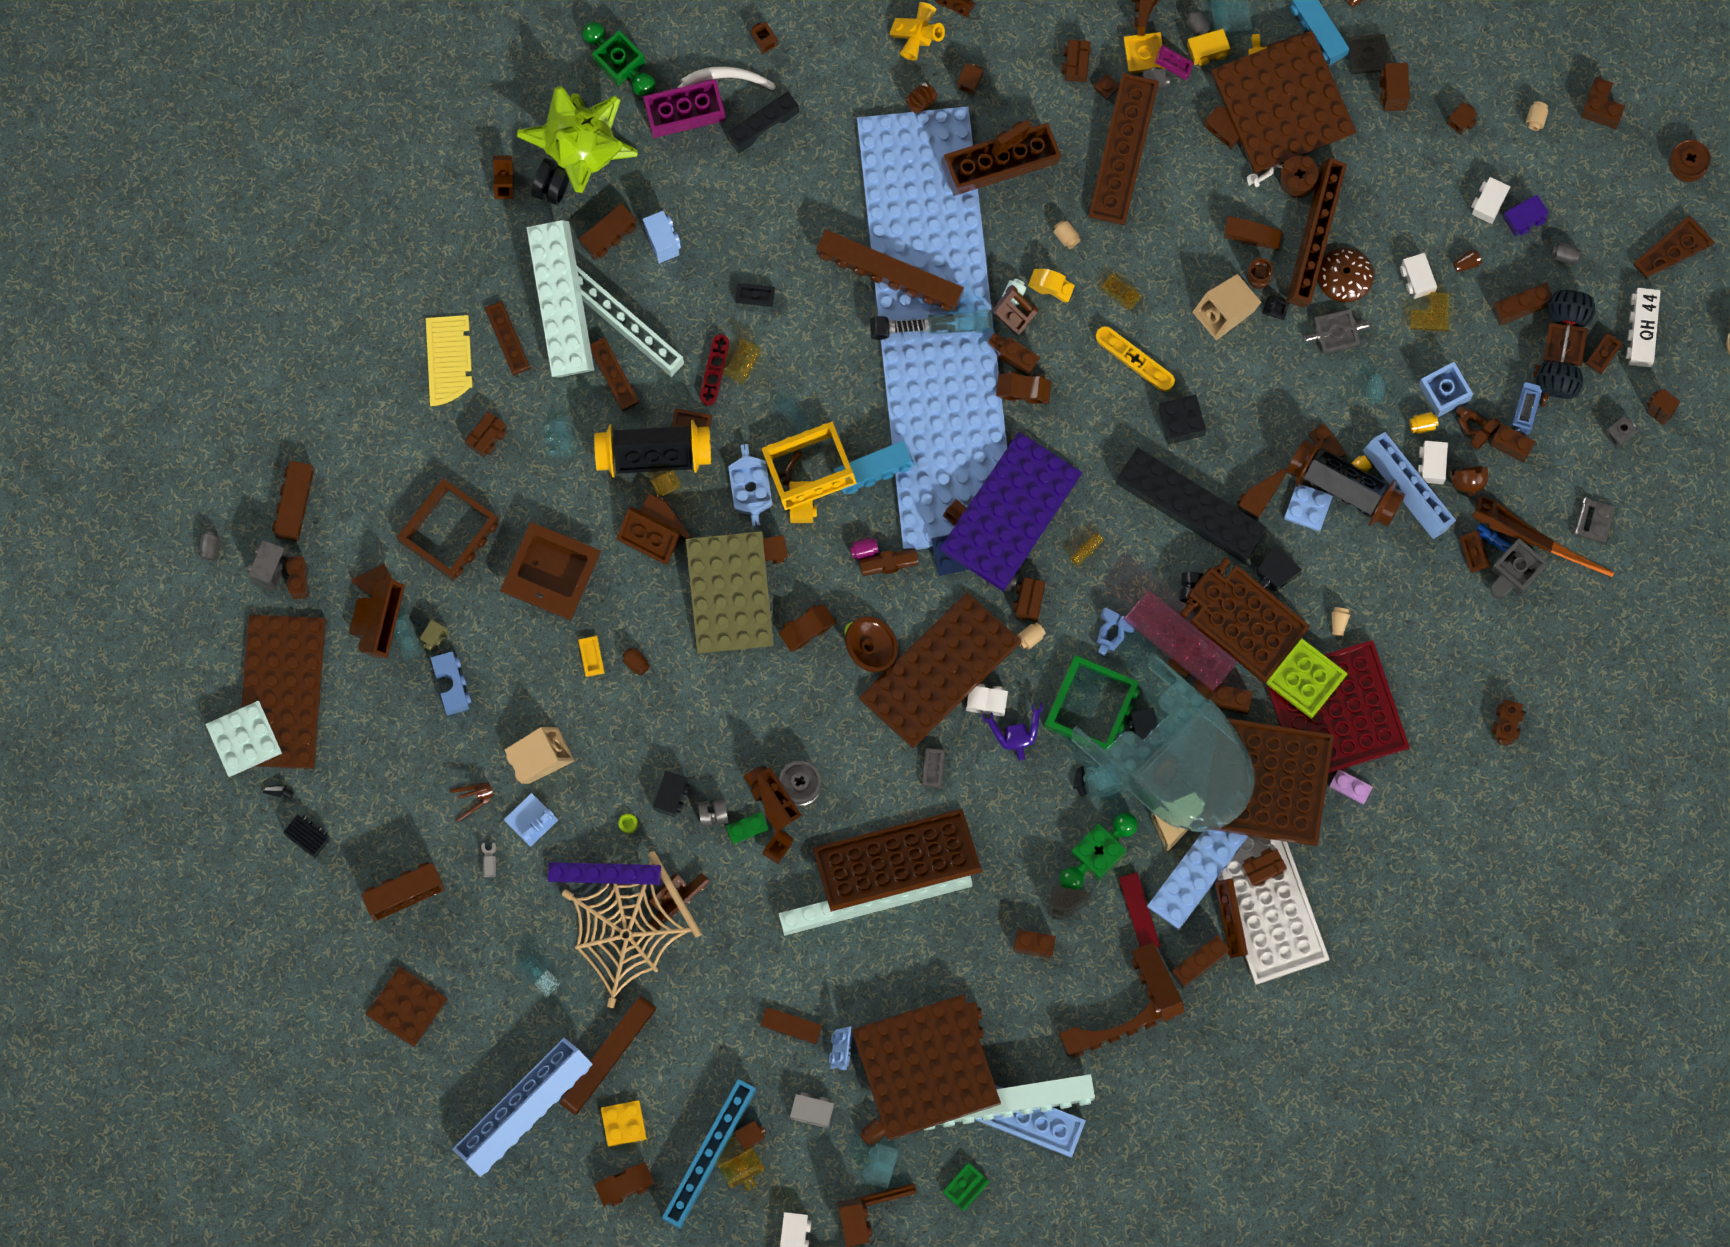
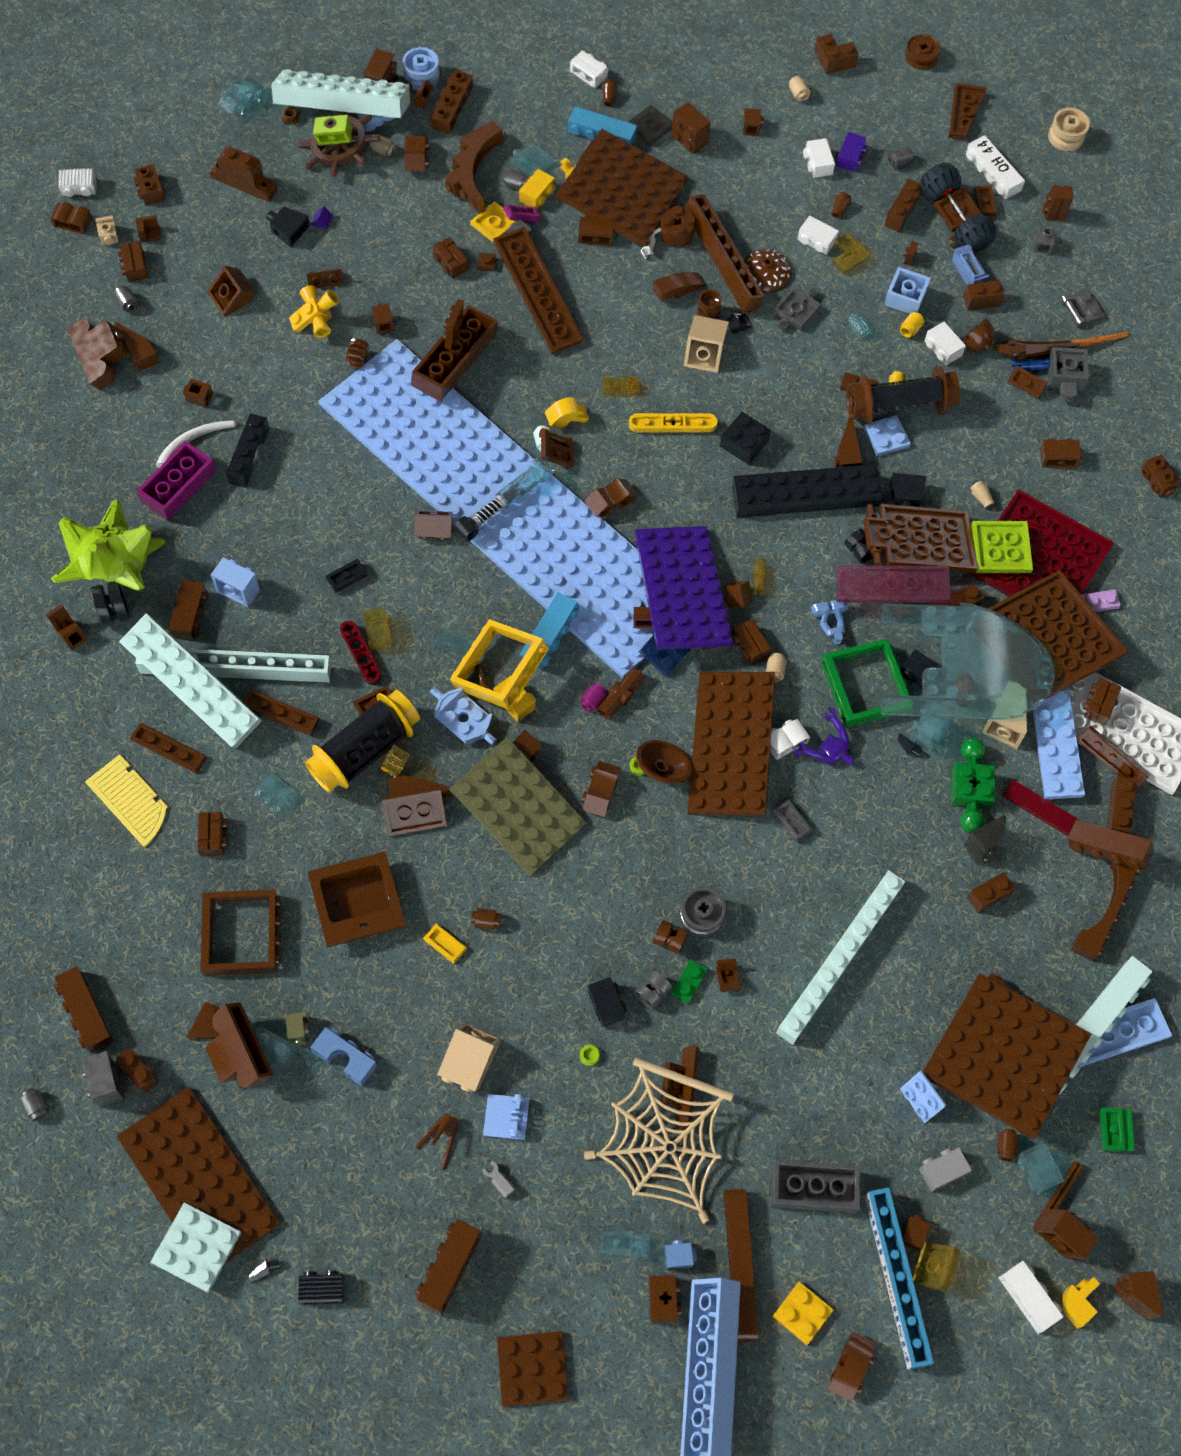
camera: 45 degrees left, 10 degrees down
(535, 1023) = (657, 1287): none -> reddish brown brick
(570, 1014) = (679, 1255): none -> medium blue brick
(604, 873) = (608, 1110): dark purple plate -> none
(618, 47) = (92, 480): green brick -> none
(706, 1045) = (815, 1186): none -> flat silver brick
(776, 801) = (703, 939): reddish brown slope -> none
(791, 1025) = (864, 1113): reddish brown tile -> none
(858, 302) = (433, 524): none -> brick
(889, 271) = (438, 484): reddish brown brick -> none
(896, 860) = (832, 911): reddish brown plate -> none
(1014, 354) = (583, 478): reddish brown hinge -> none
(1055, 551) = (738, 594): none -> reddish brown panel
(1066, 234) = (546, 373): tan brick -> none
(1419, 496) = (921, 364): light blue brick -> none
(1440, 636) = (1060, 453): none -> reddish brown brick
(1481, 436) = (958, 306): reddish brown piece -> none
(1486, 354) = (910, 252): none -> reddish brown plate

